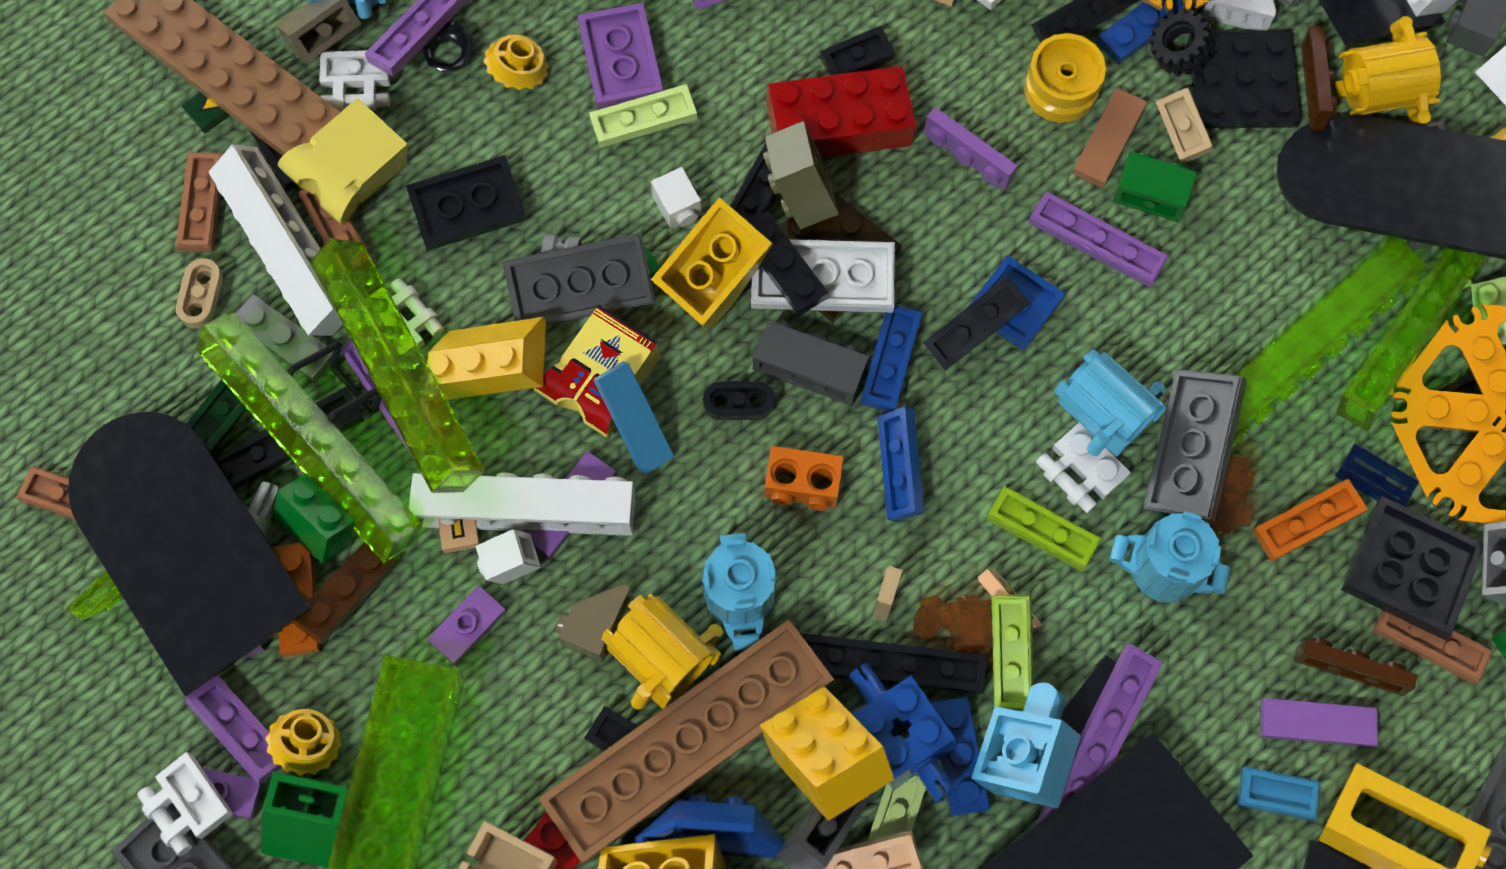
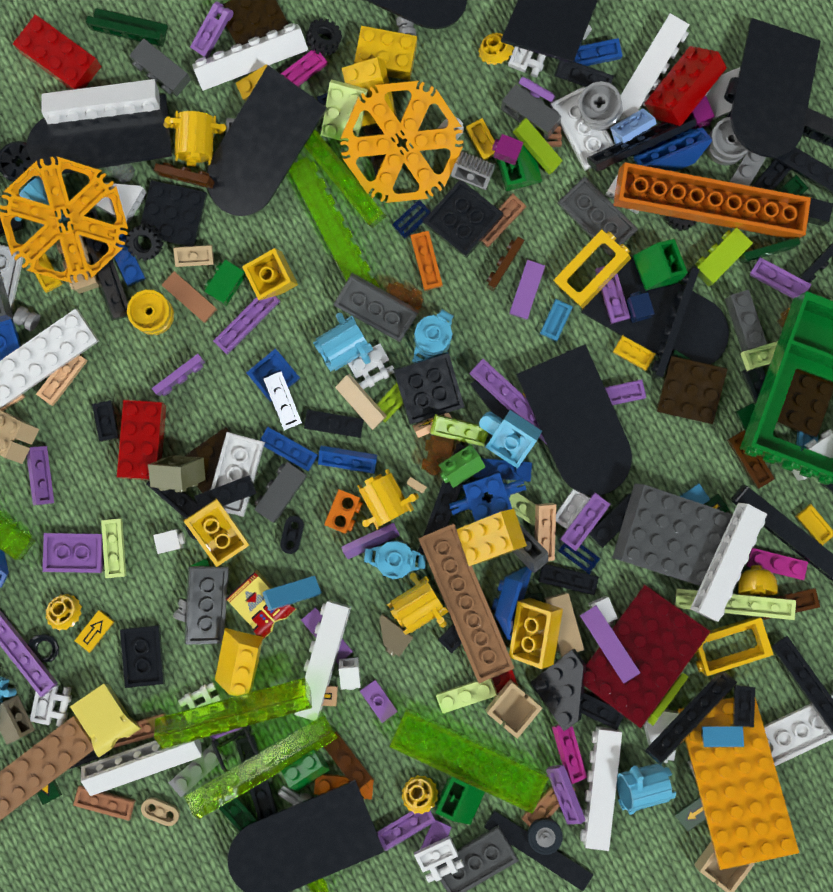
camera: 80 degrees left, 15 degrees up
(494, 120) = (94, 631): none -> yellow tile
(510, 786) = (466, 695): none -> yellowish green plate
(746, 518) = (370, 541): none -> medium lavender tile
(845, 544) = (384, 499): none -> yellow container
(946, 667) = (461, 466): none -> bright green brick
(958, 428) = (333, 424): none -> black plate
(1013, 463) = (361, 401): none -> tan tile
(1076, 576) = (428, 388): none -> black plate
(1194, 254) = (270, 275): none -> yellow slope

